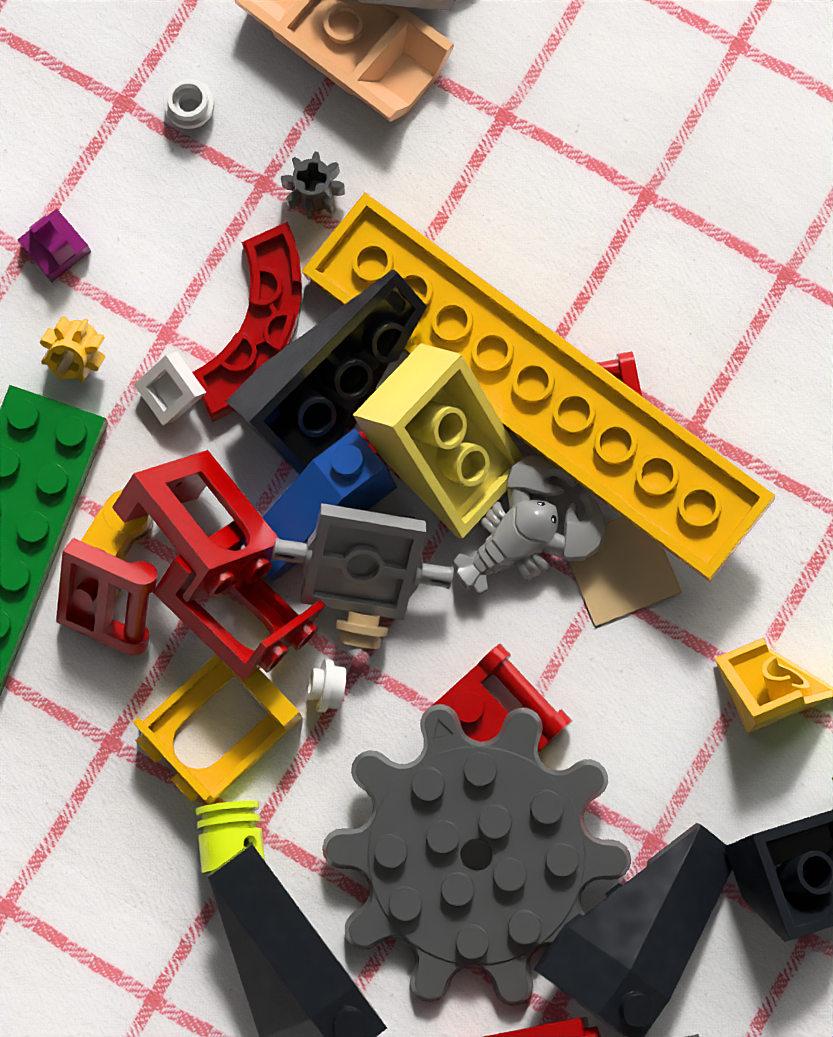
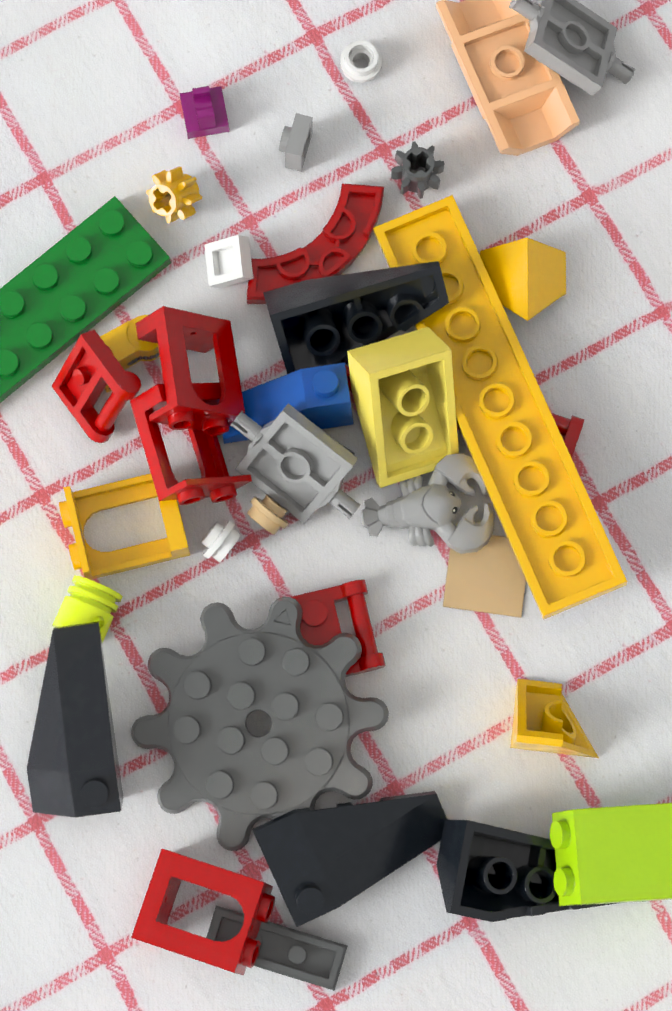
camera: 20 degrees right, 0 degrees up
(169, 224) = (296, 141): none -> light grey plate
(488, 234) = (526, 275): none -> yellow slope

